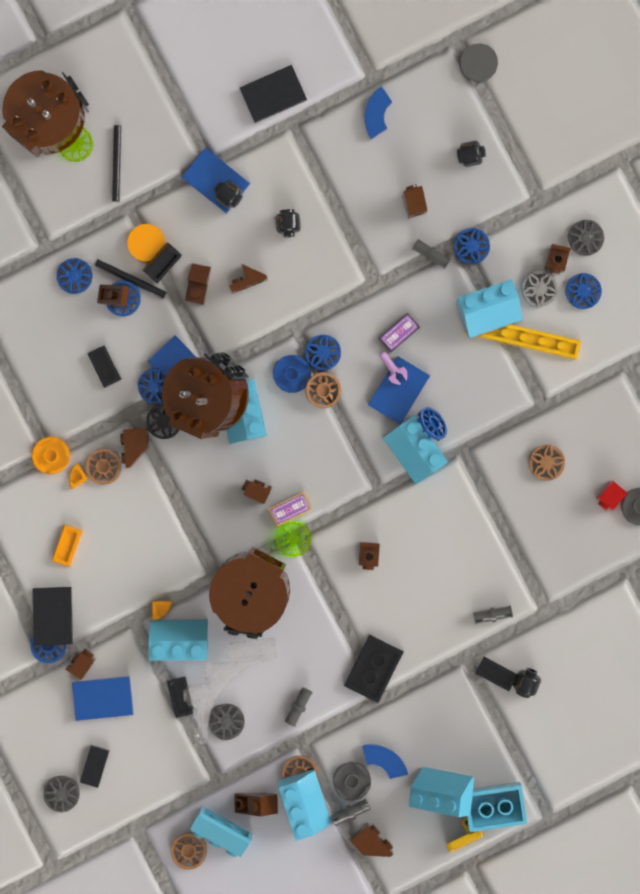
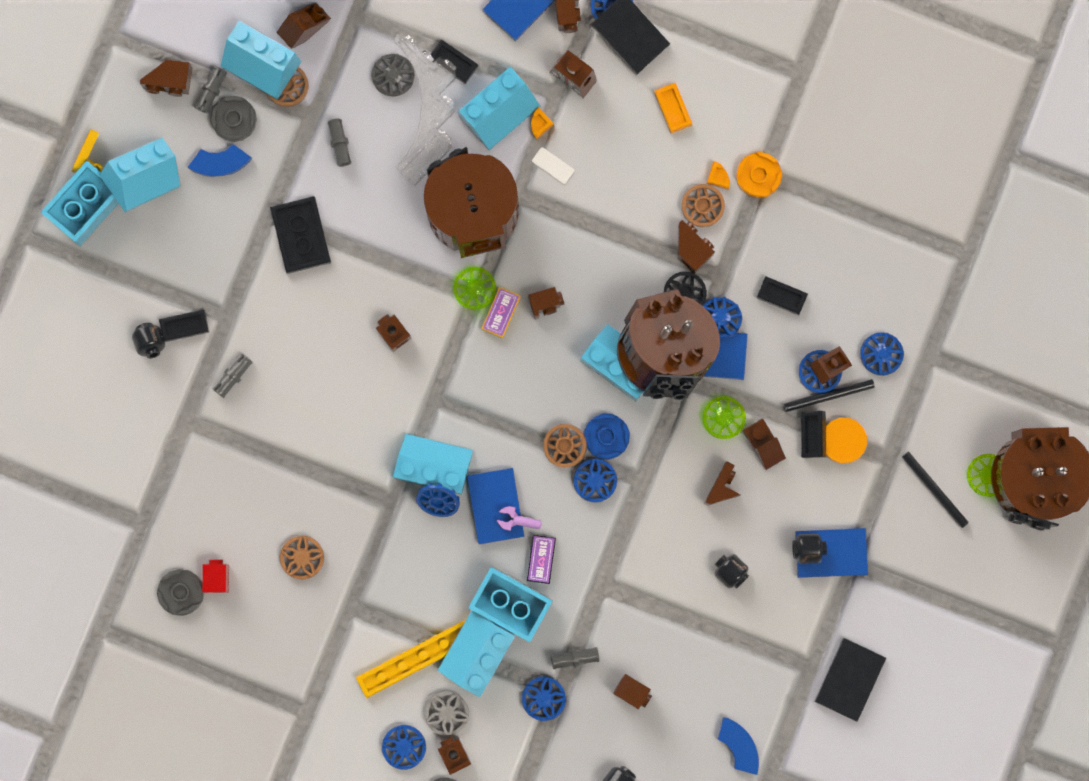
camera: 135 degrees right, 5 degrees down
(111, 621) = (574, 73): none -> reddish brown torso
(175, 575) = (553, 165): none -> white sticker
(208, 322) = (724, 417): none -> clear neon green wheel
(443, 320) = (510, 604): none -> medium azure slope

